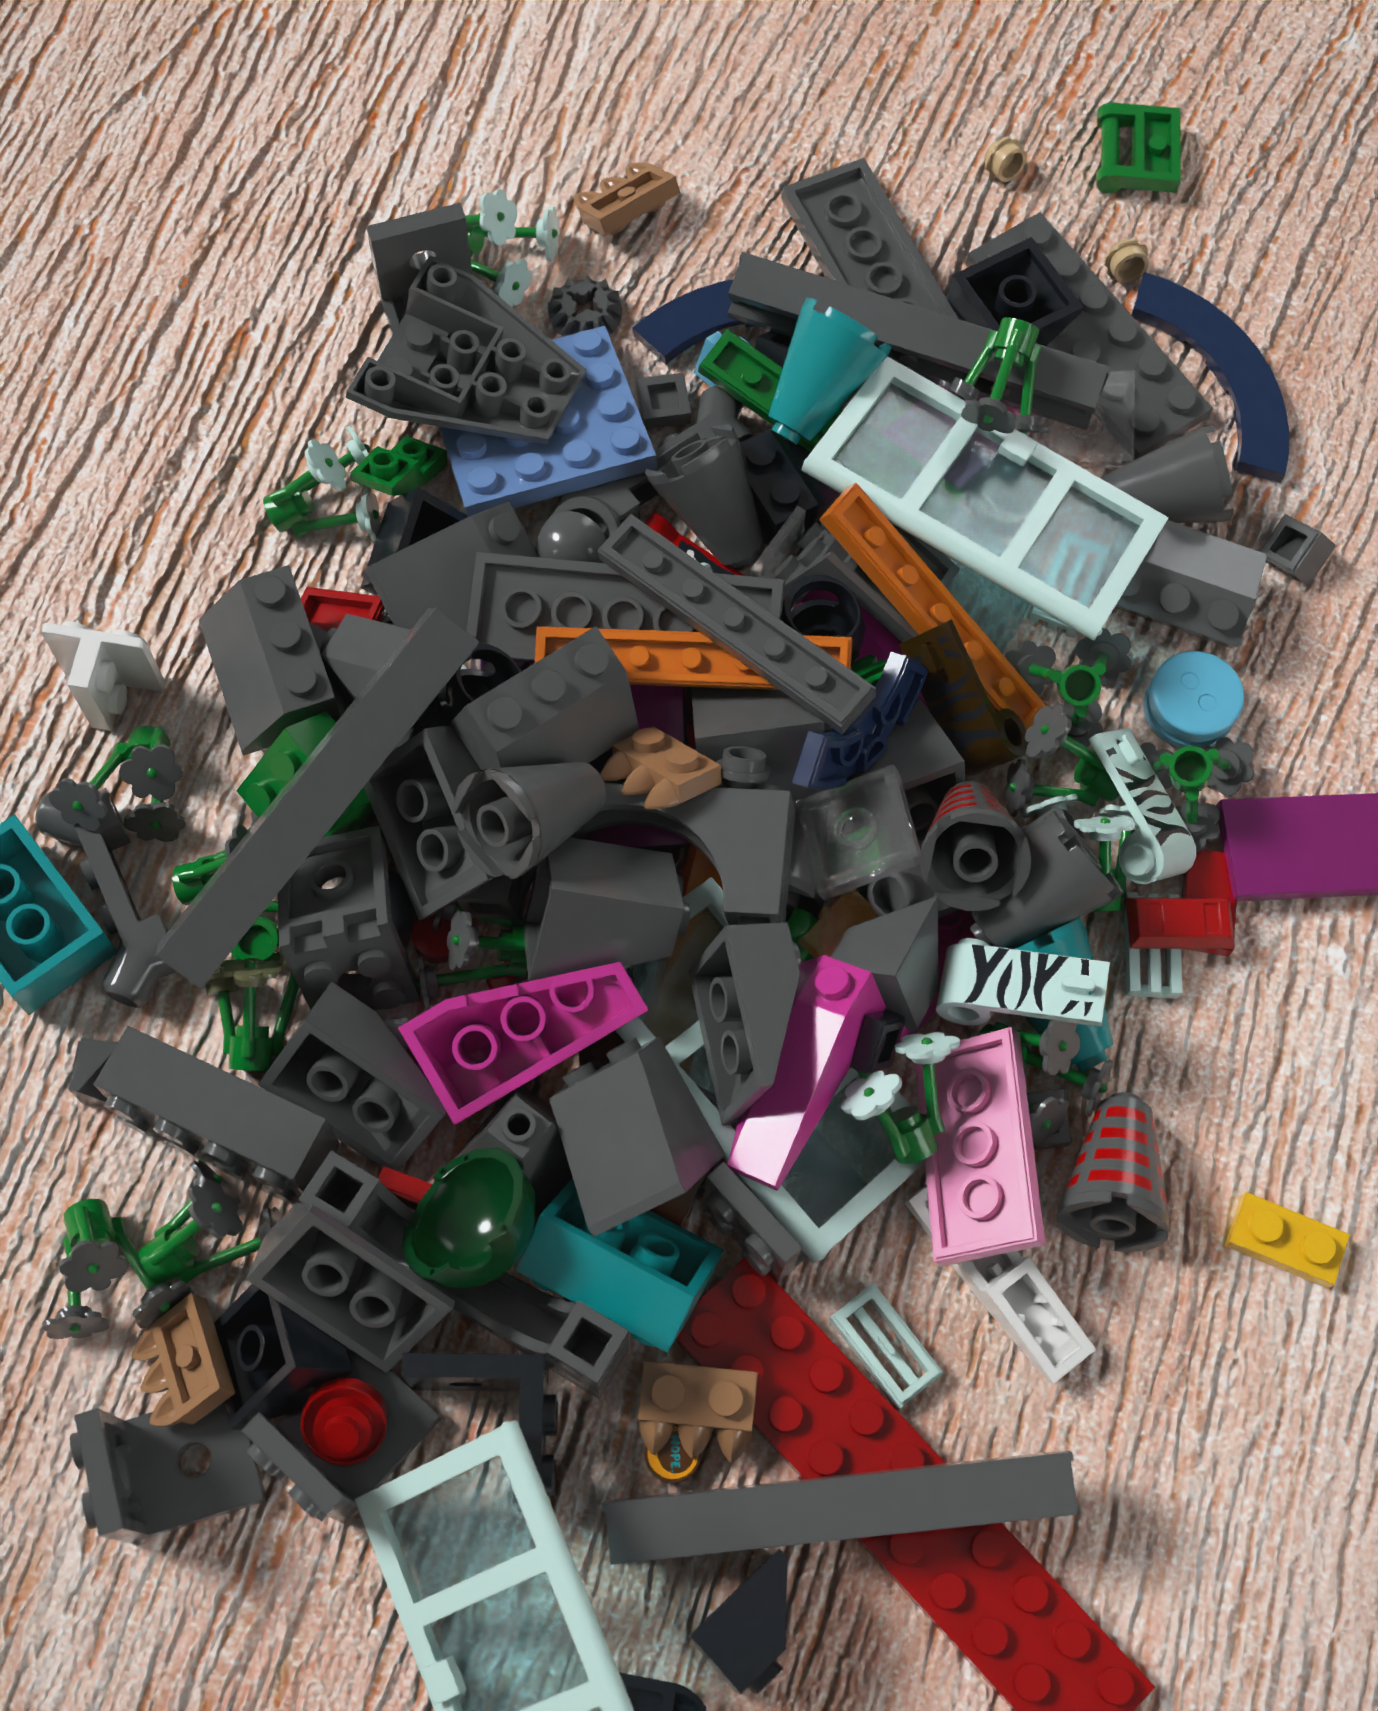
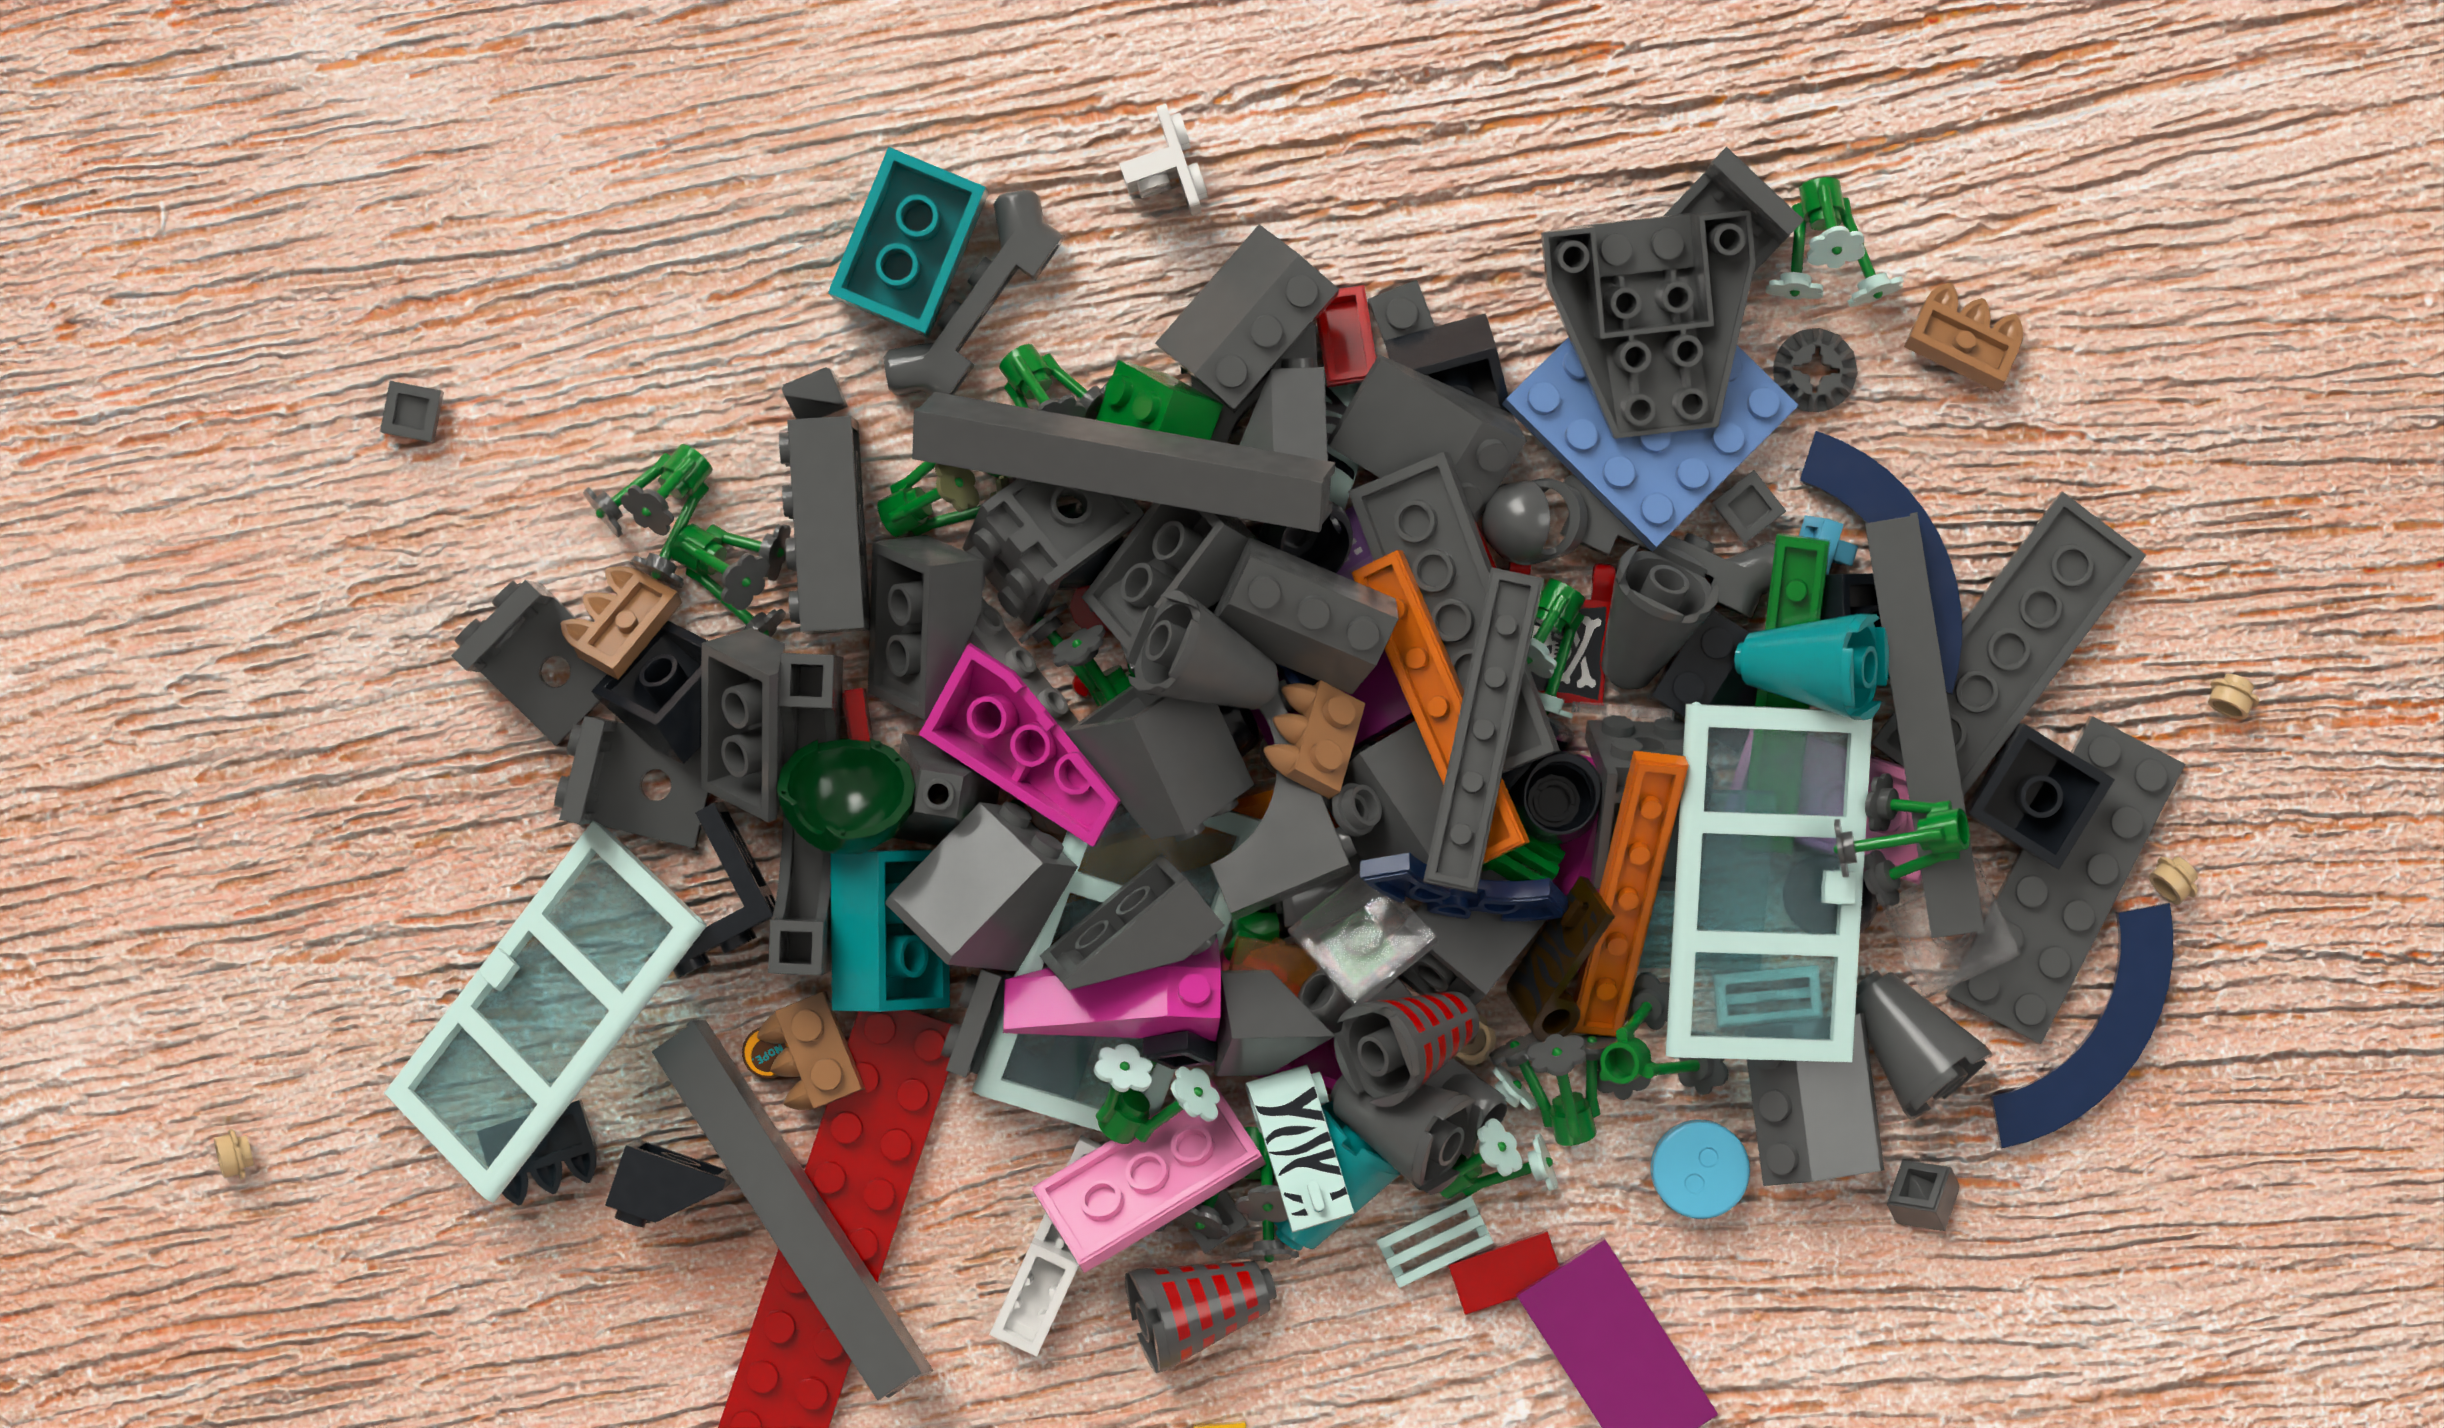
camera: 70 degrees right, 20 degrees up
(149, 769) = (1080, 287): dark grey plant -> none
(292, 504) = (1438, 225): plant -> none
(344, 1421) = (644, 779): red plate -> none
(345, 568) = (1401, 311): none -> dark grey plate
(402, 468) = (1517, 305): green slope -> none
(869, 1360) = (968, 1140): light aqua tile -> none
(1154, 148) = (2333, 842): green plate -> none
(1163, 842) = (1536, 1199): light aqua door -> none
(1180, 923) = (1463, 1256): red tile -> none
(1195, 768) = (1593, 1200): plant -> none

